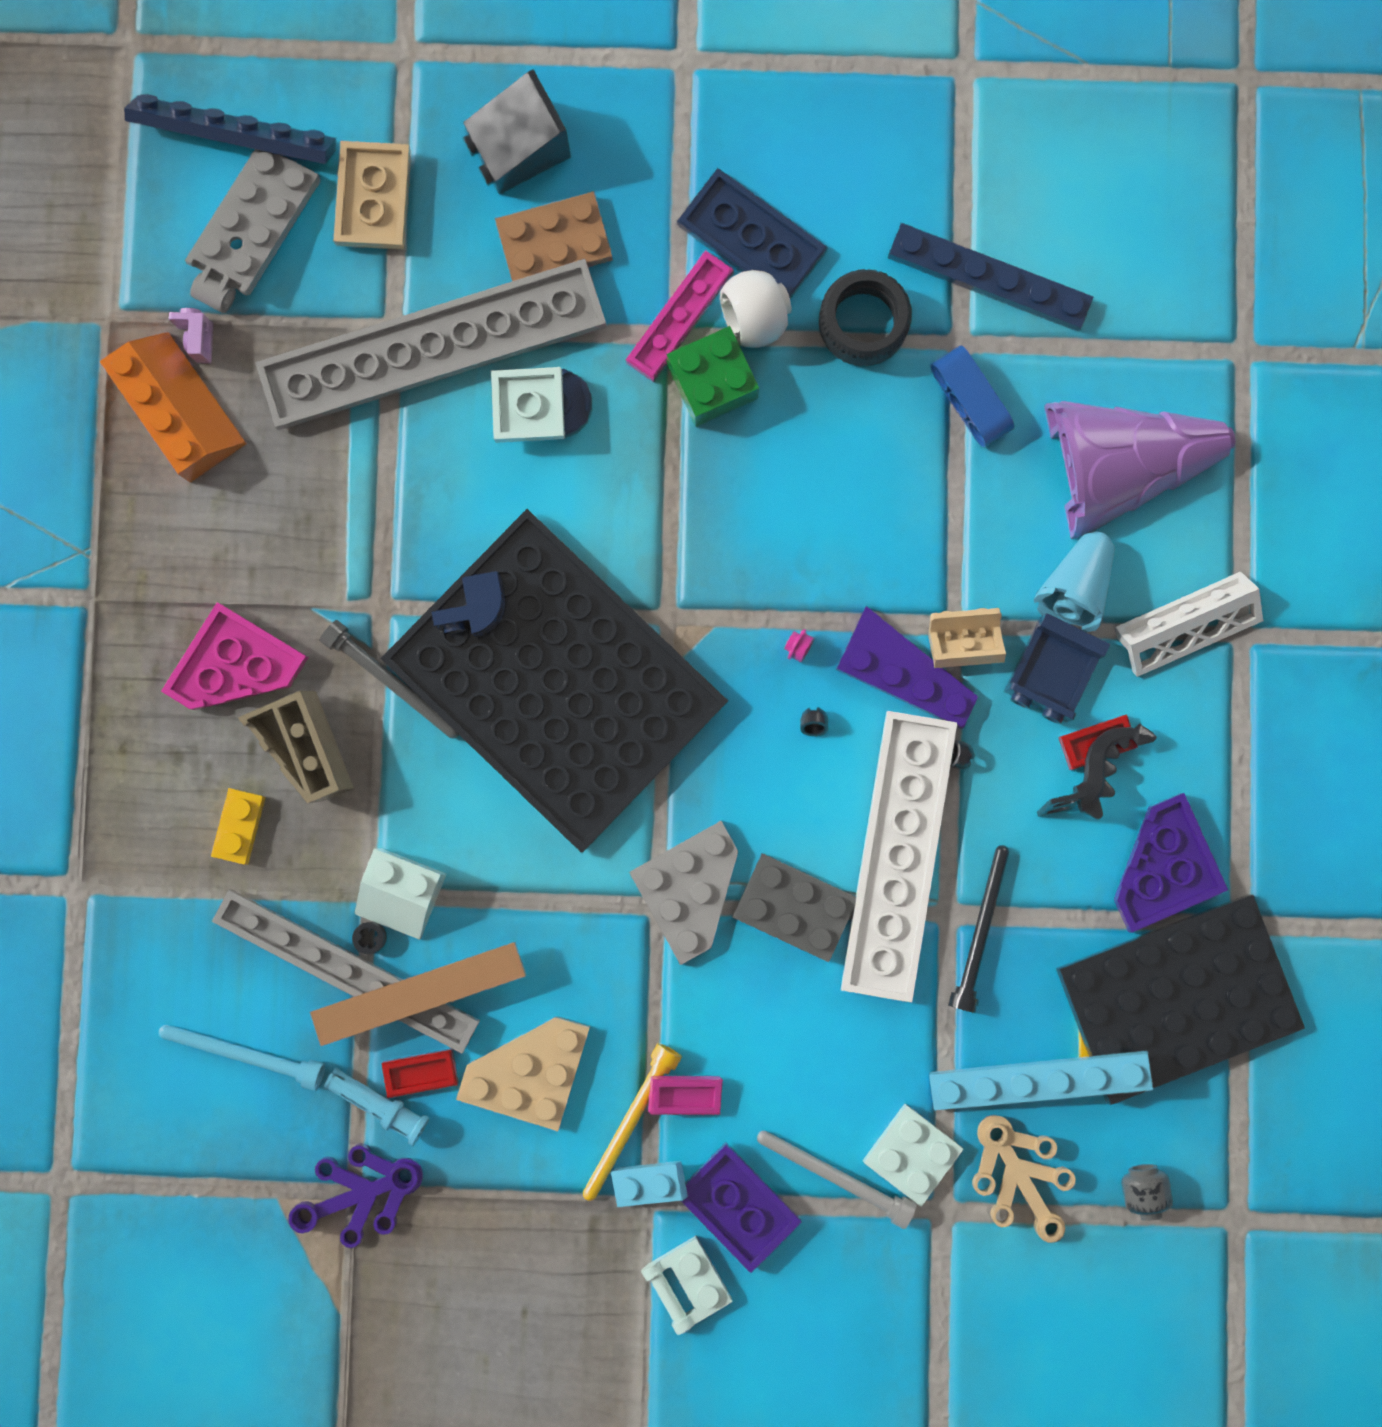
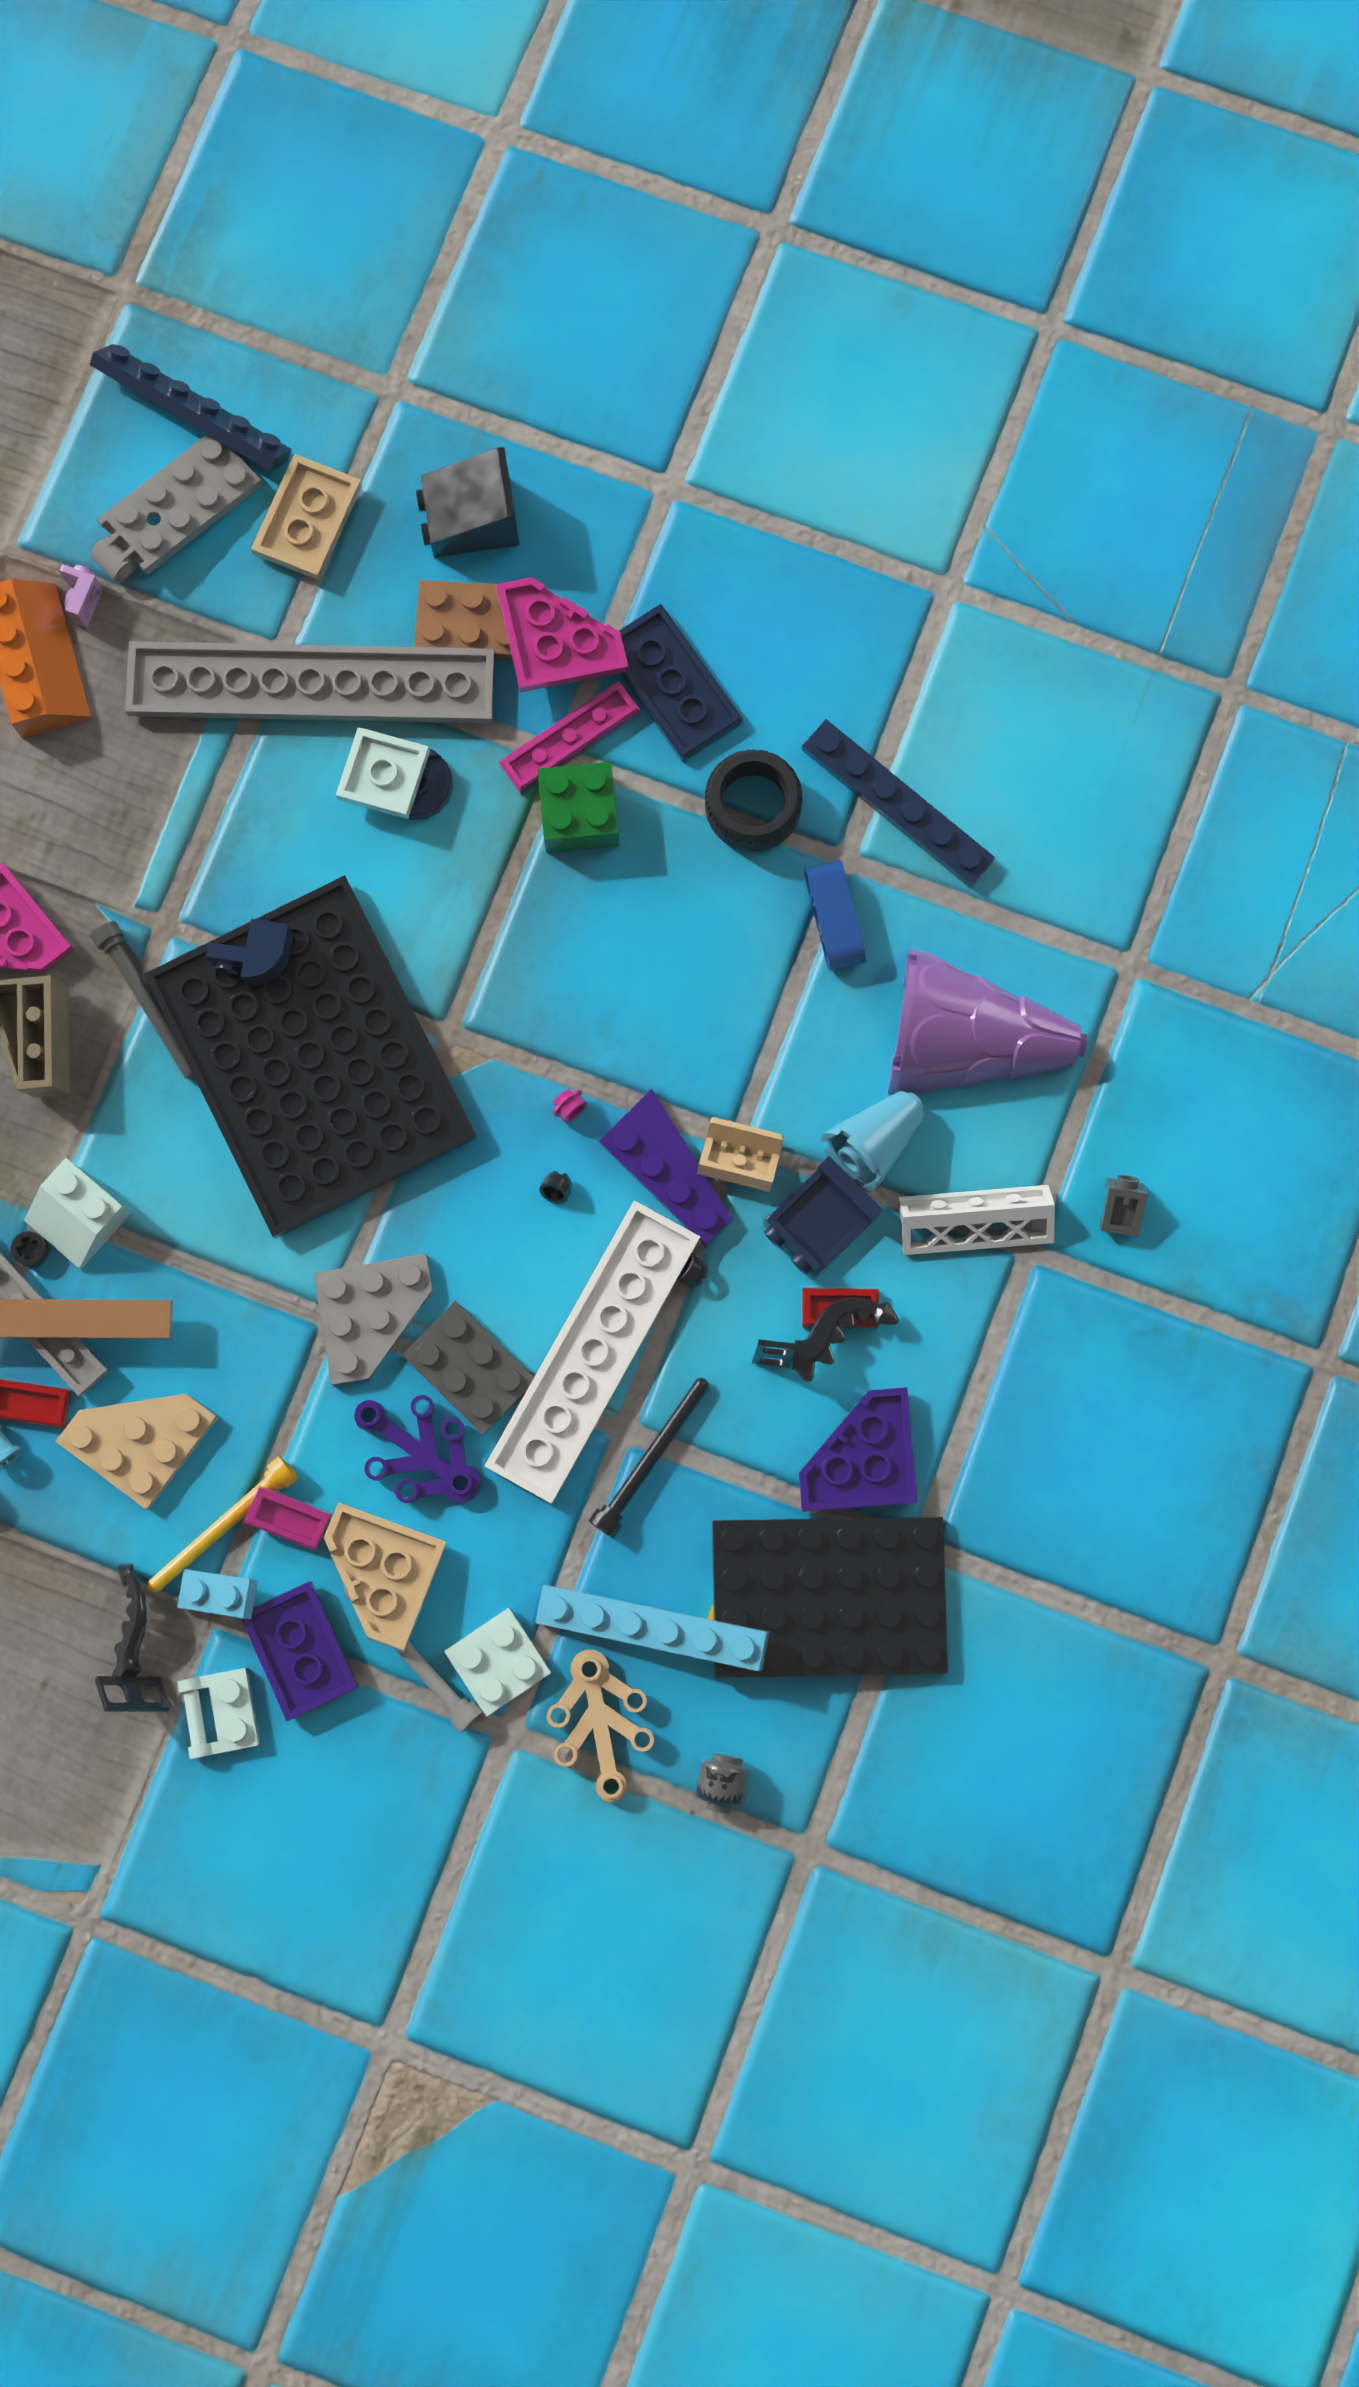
camera: 20 degrees right, 5 degrees down
(594, 1276) = (127, 1655): none -> black piece
(637, 230) = (555, 638): none -> dark pink plate
(755, 308) = (644, 754): white wheel -> none
(782, 998) = (423, 1454): none -> dark purple plant
(788, 1113) = (383, 1571): none -> tan plate
(1314, 567) = (1123, 1205): none -> dark grey bracket

